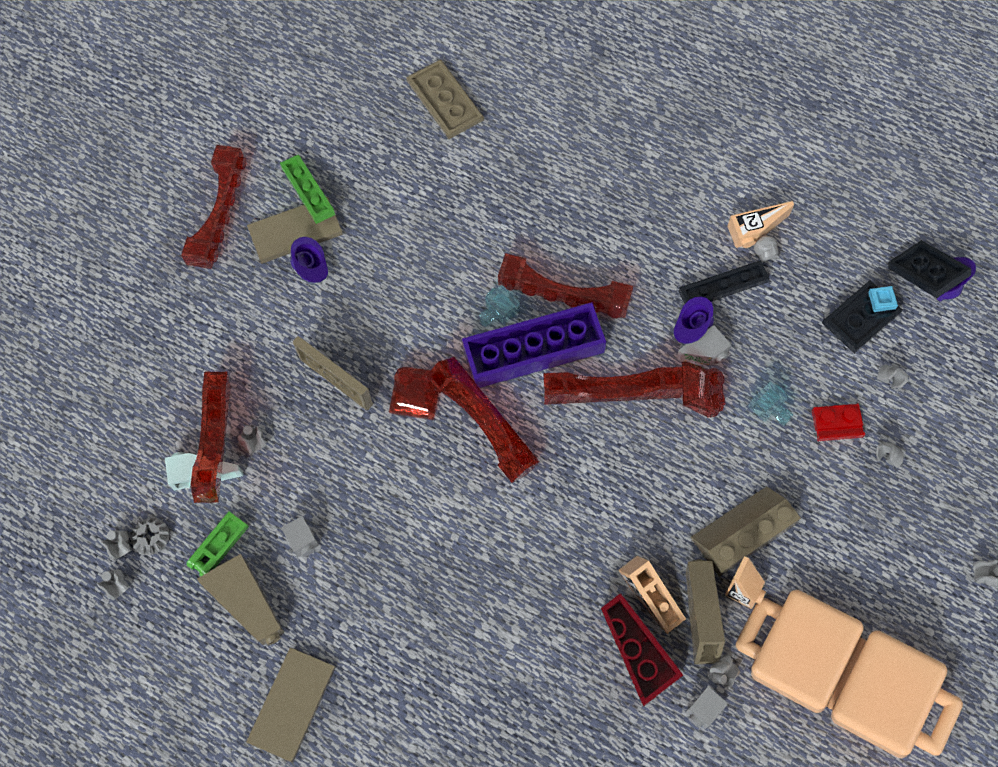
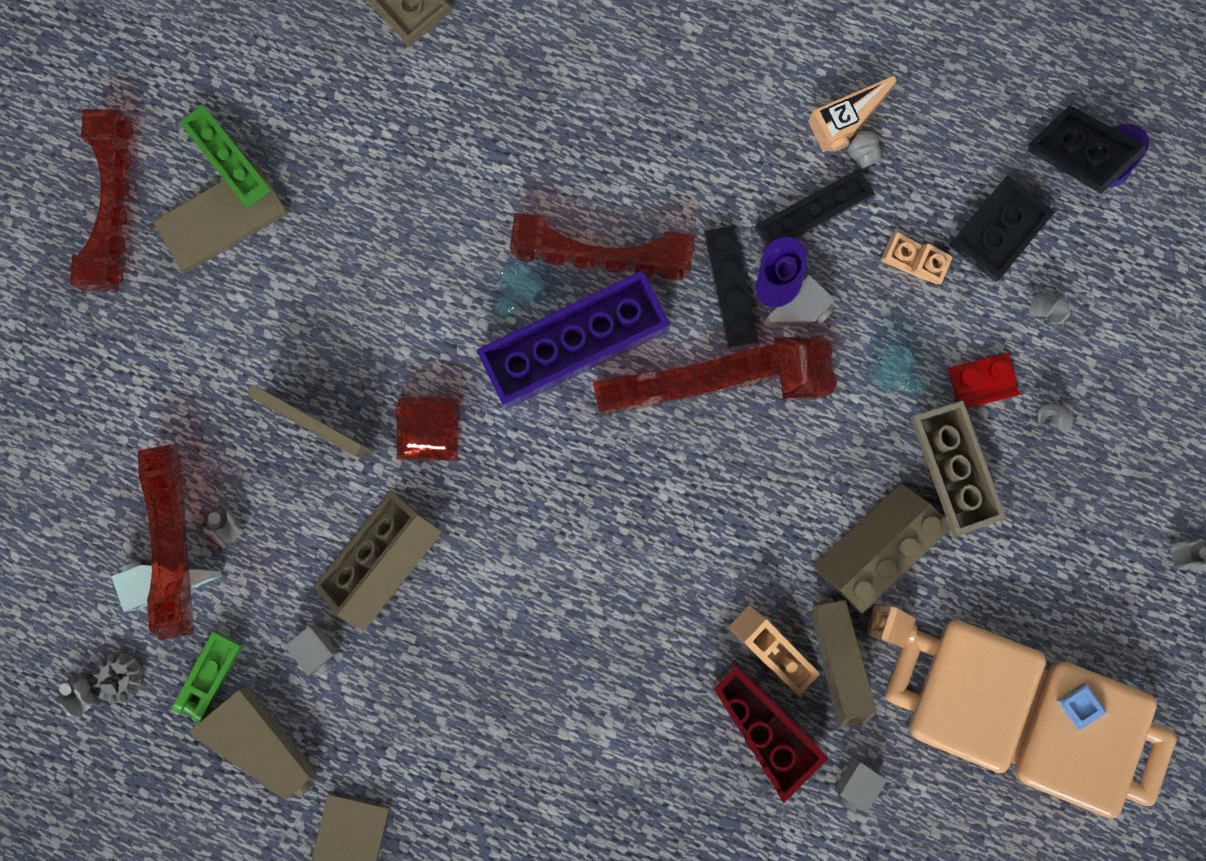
camera: 10 degrees left, 15 degrees up
(113, 583) = (82, 750): light grey arm -> none
(308, 260) = (248, 263): dark purple piece -> none
(361, 479) = (376, 561): none -> dark tan slope
(513, 454) = (477, 411): clear red arch -> none
(655, 327) = (730, 287): none -> black plate
(724, 671) = (876, 735): light grey arm -> none
(798, 330) = (916, 259): none -> light nougat slope
(810, 476) = (958, 468): none -> dark tan slope
(883, 299) = (1027, 201): medium azure tile -> none
(887, 663) = (1082, 706): none -> light blue tile

